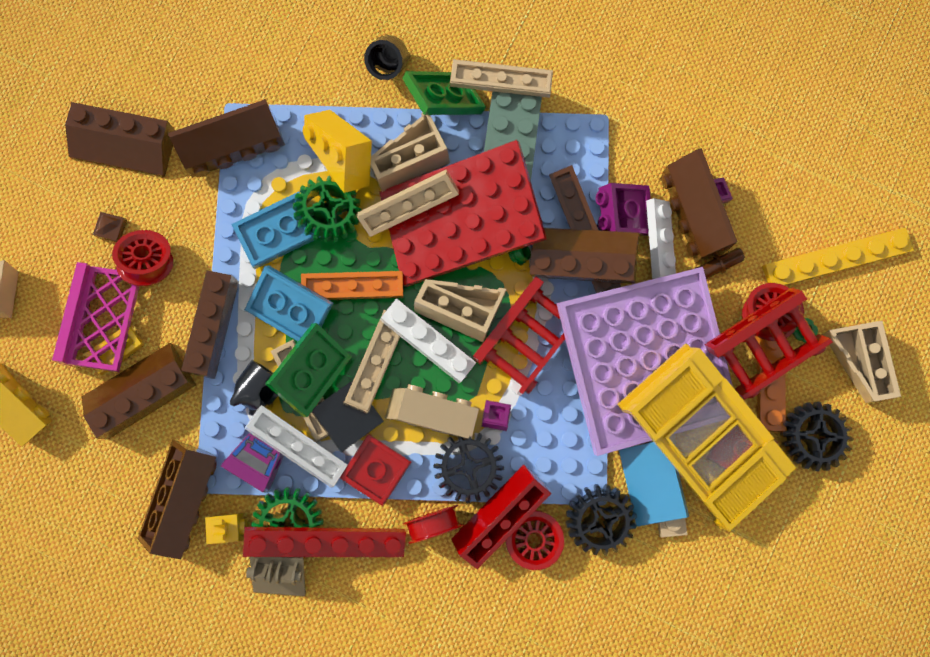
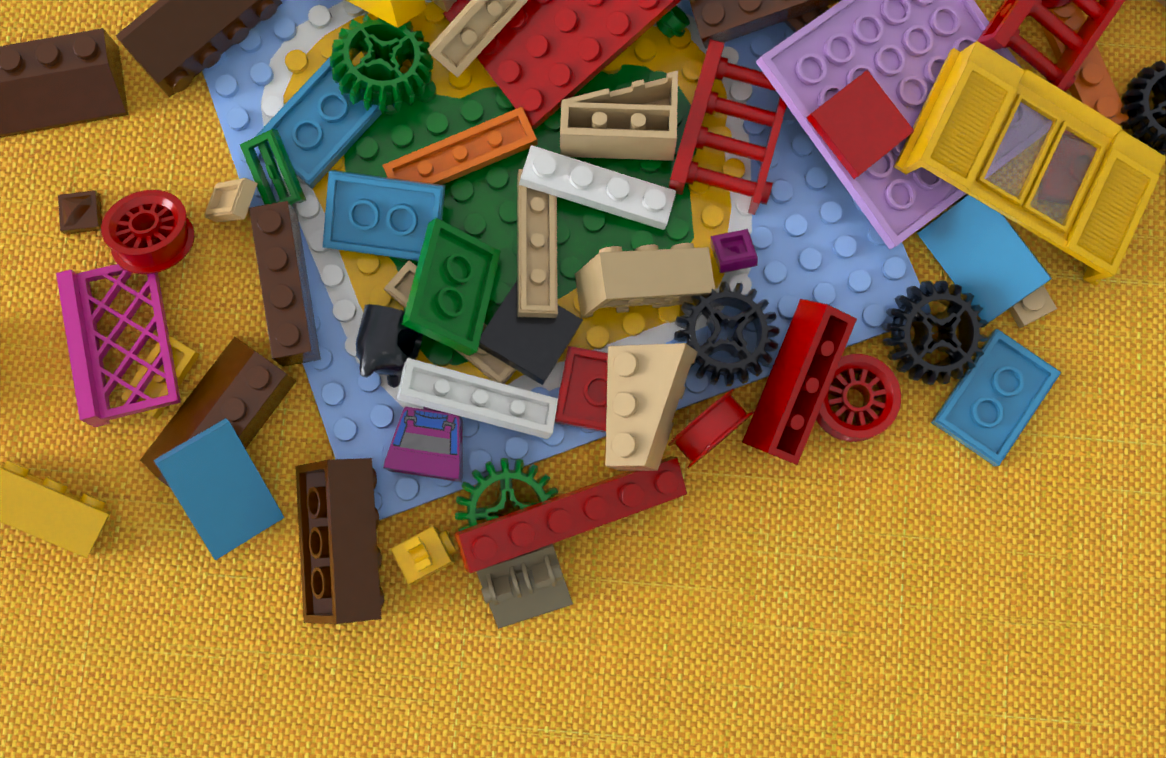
camera: 20 degrees left, 0 degrees up
(117, 437) = (219, 488): none -> dark azure tile
(200, 258) = (230, 200): none -> tan tile
(237, 250) = (284, 164): none -> green tile
(394, 492) = (642, 401): none -> tan wedge
(605, 370) = (860, 124): none -> red tile
(624, 576) = (996, 398): none -> dark azure tile

